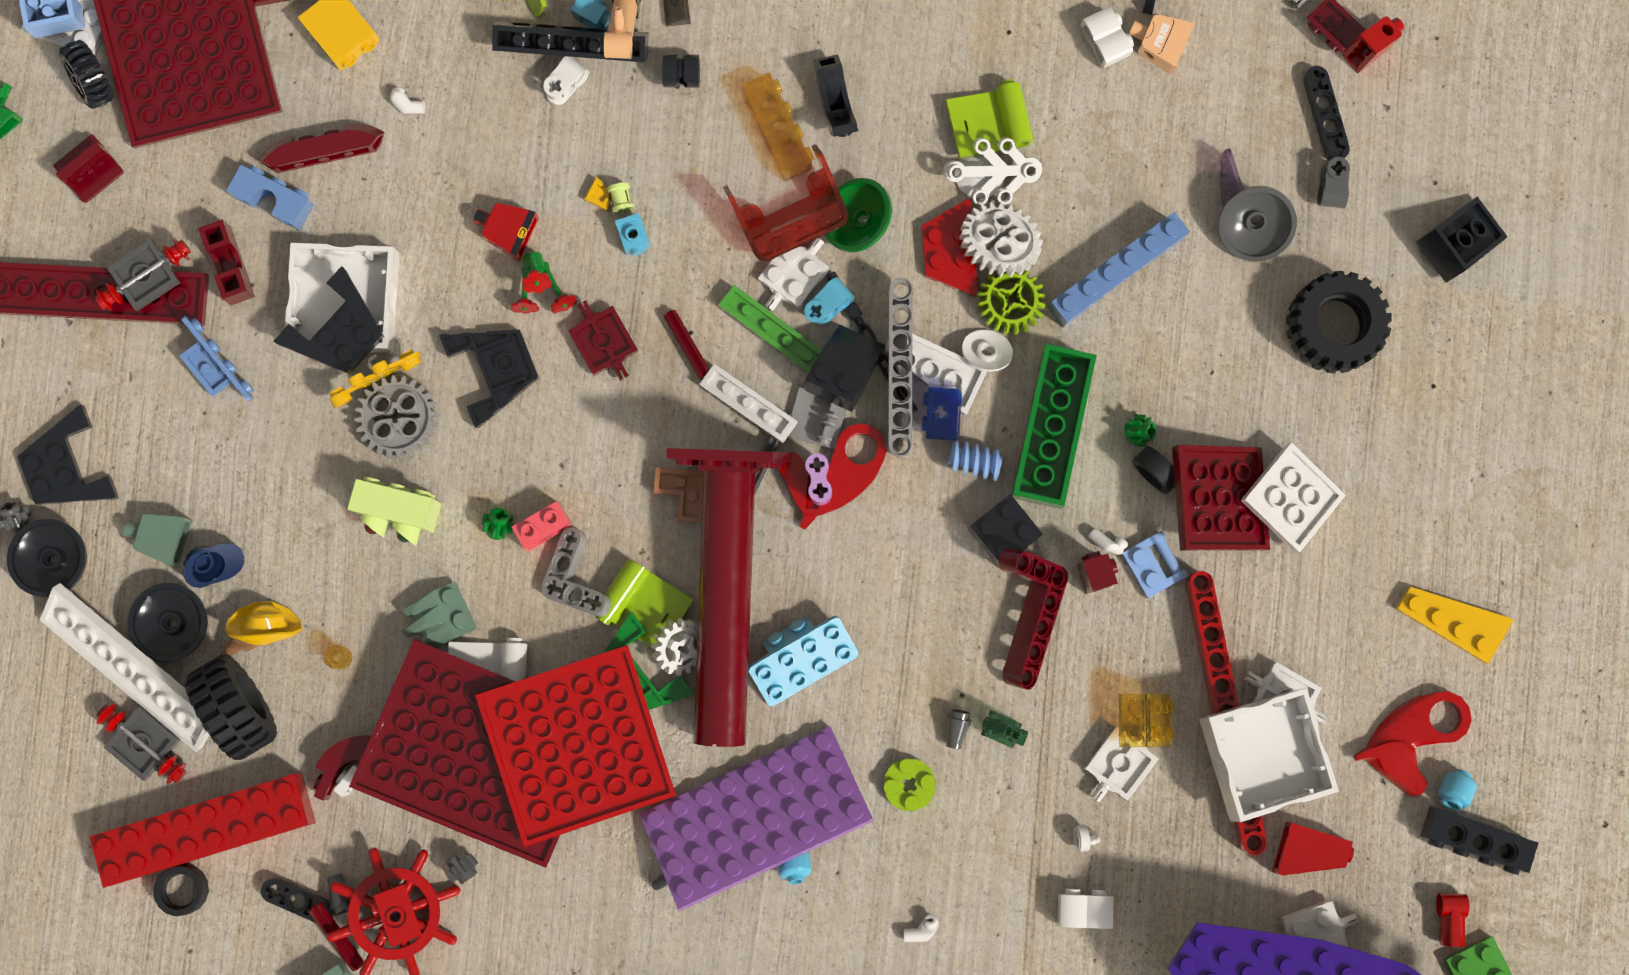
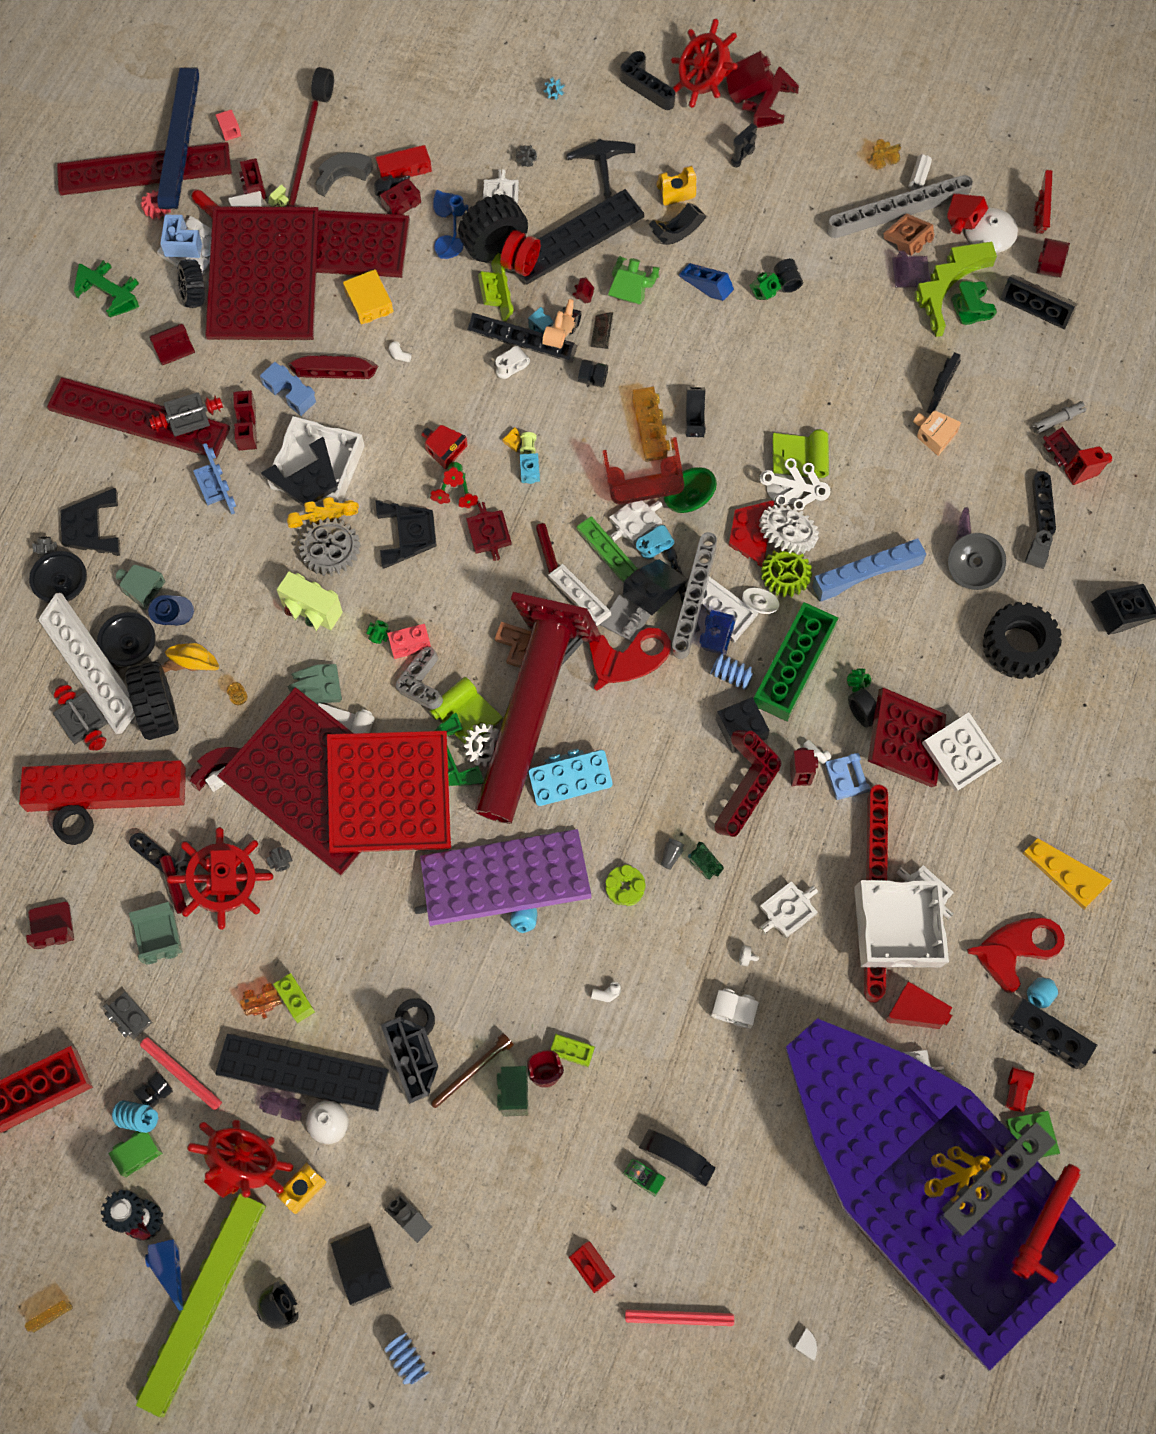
camera: 15 degrees right, 15 degrees down
(818, 478) = (615, 654): lavender axle -> none
(1107, 37) = (897, 419): white brick -> none
(1145, 720) = (814, 879): clear yellow bracket -> none

